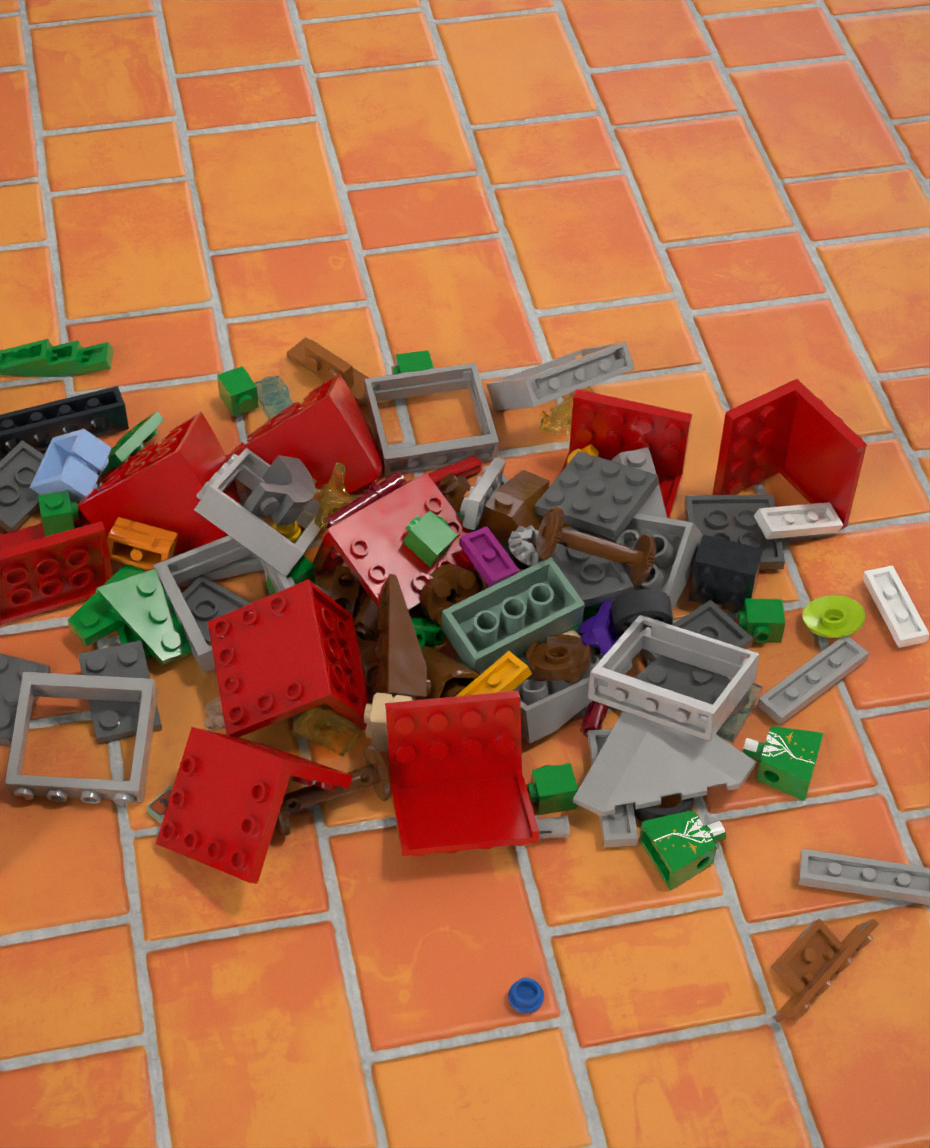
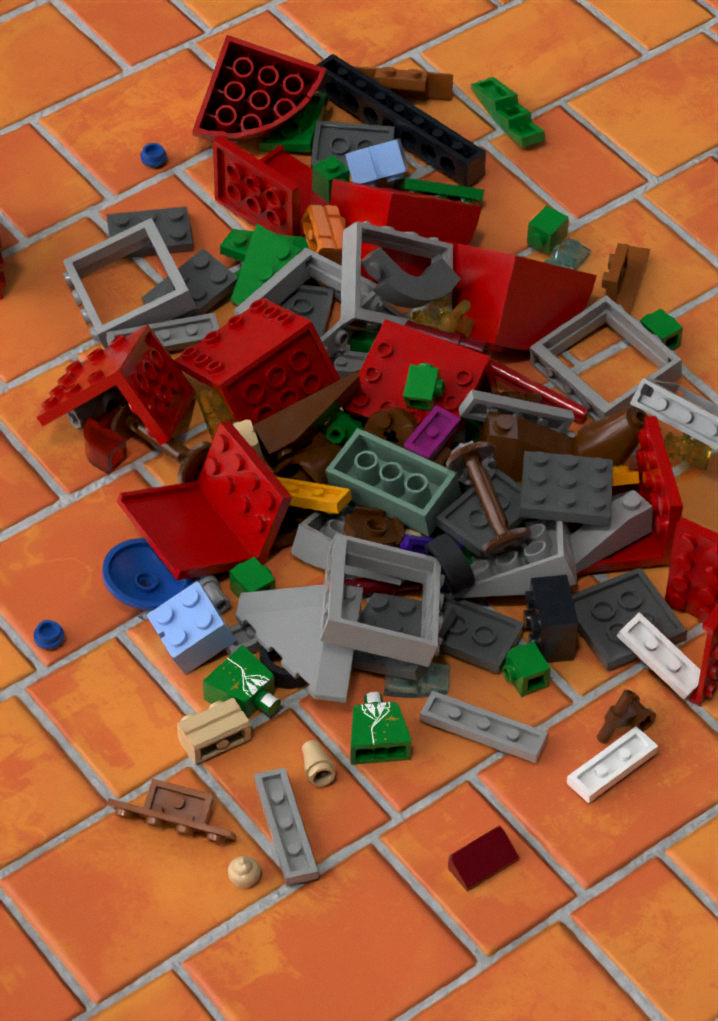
camera: 65 degrees right, 0 degrees up
(171, 737) = (176, 333): none -> light grey plate
(293, 850) = (102, 445): none -> clear red brick
(506, 875) = (139, 576): none -> blue dish
(543, 444) = (611, 437): none -> reddish brown cone
(597, 853) = (191, 627): none -> light blue piece
(728, 892) = (213, 730): none -> tan brick
(803, 822) = (318, 766): none -> tan cone
(833, 616) = (564, 718): lime dish -> none
(849, 569) = (625, 713): none -> reddish brown piece
(909, 933) = (244, 872): none -> tan plate

